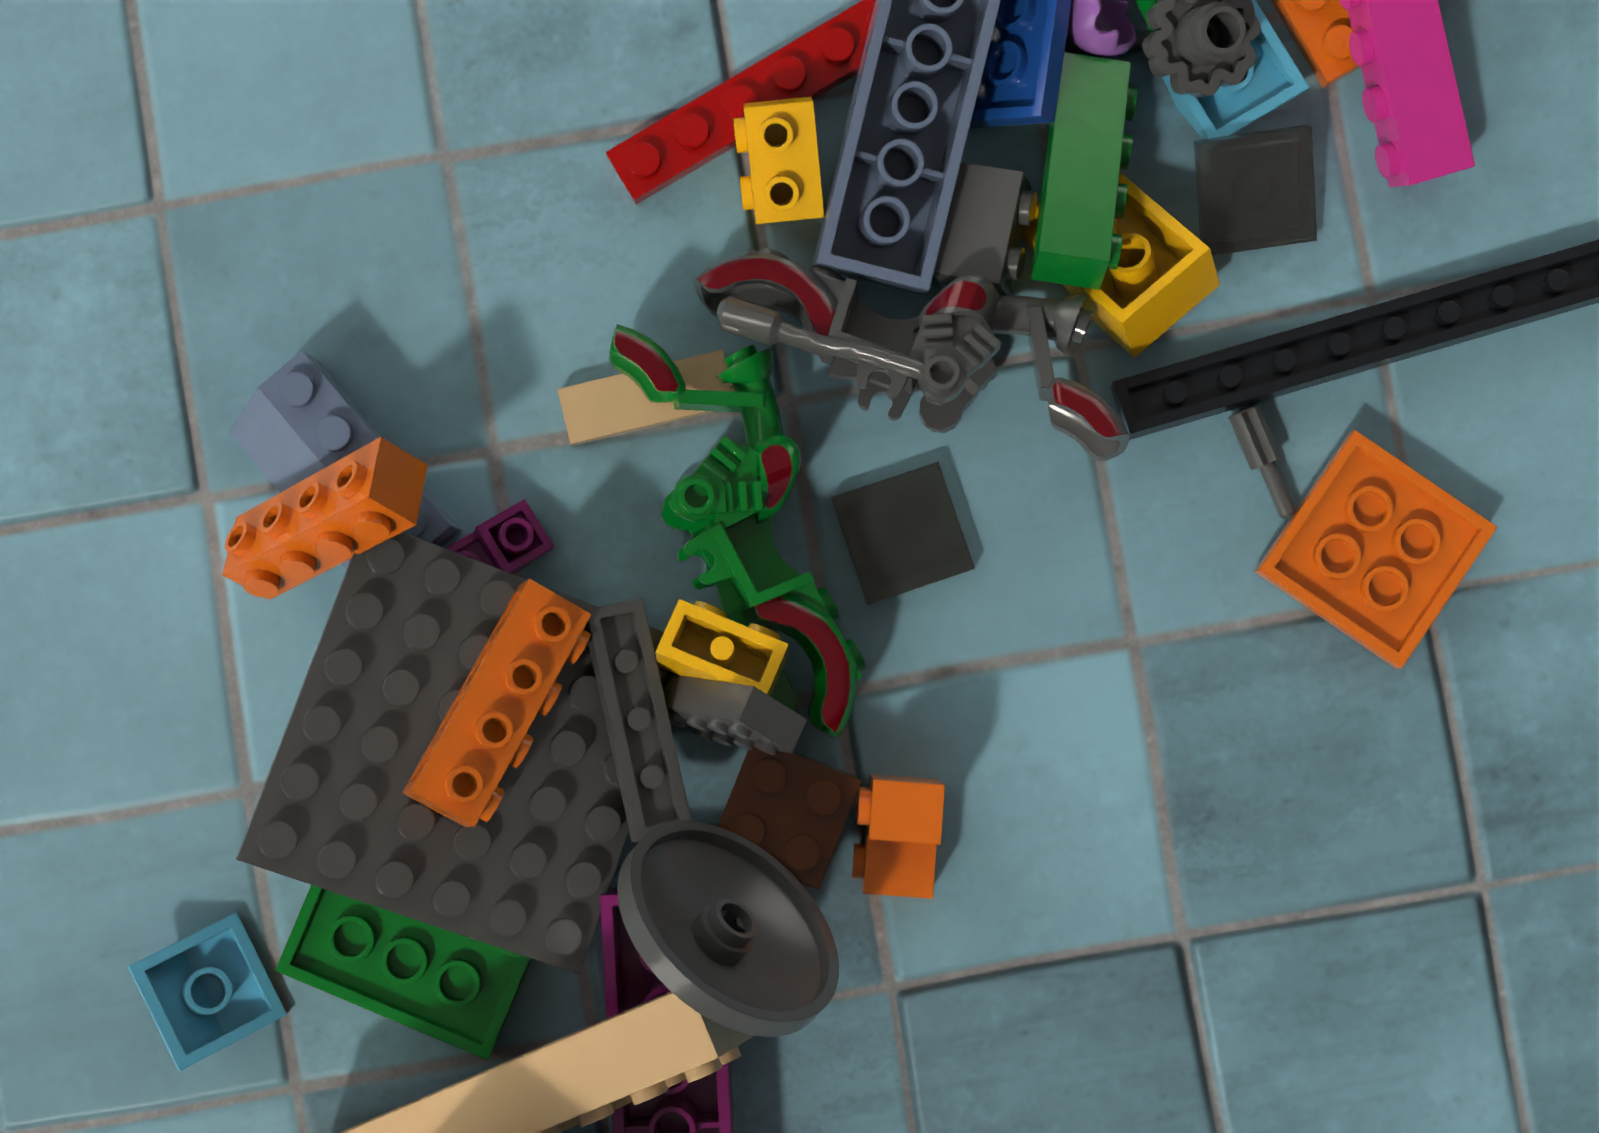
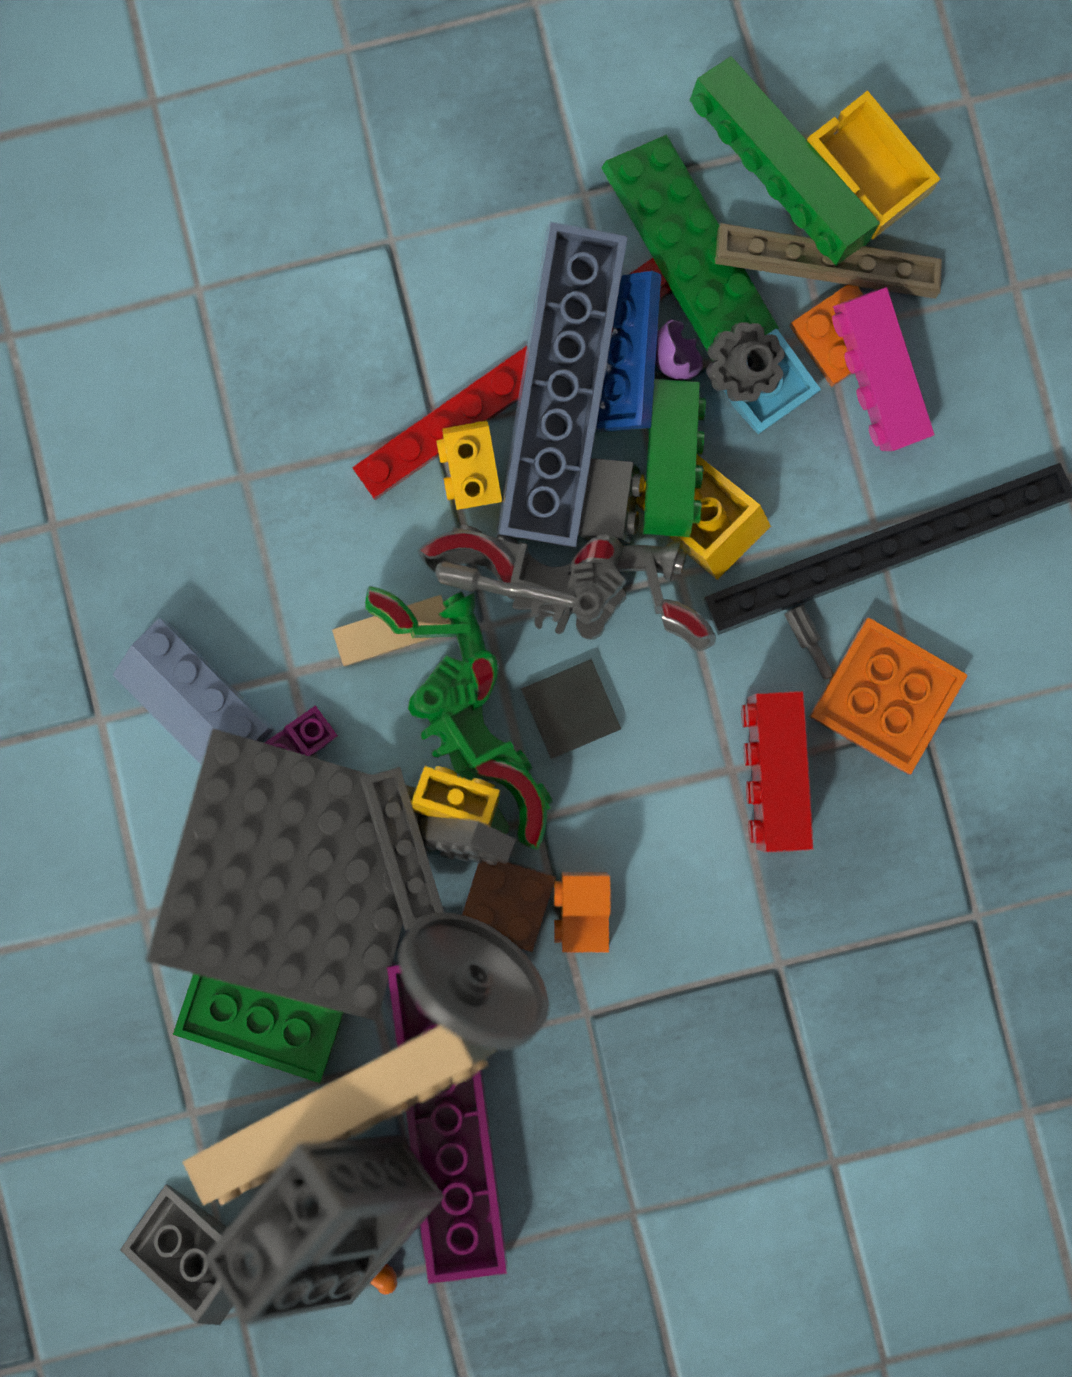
camera: 10 degrees left, 0 degrees up
(207, 991) = (128, 1052): medium azure slope -> none
(325, 519) = (184, 731): orange brick -> none
(498, 704) = (310, 845): orange brick -> none
(1205, 648) = (778, 772): none -> red brick
(1256, 189) = (790, 461): clear smoke tile -> none

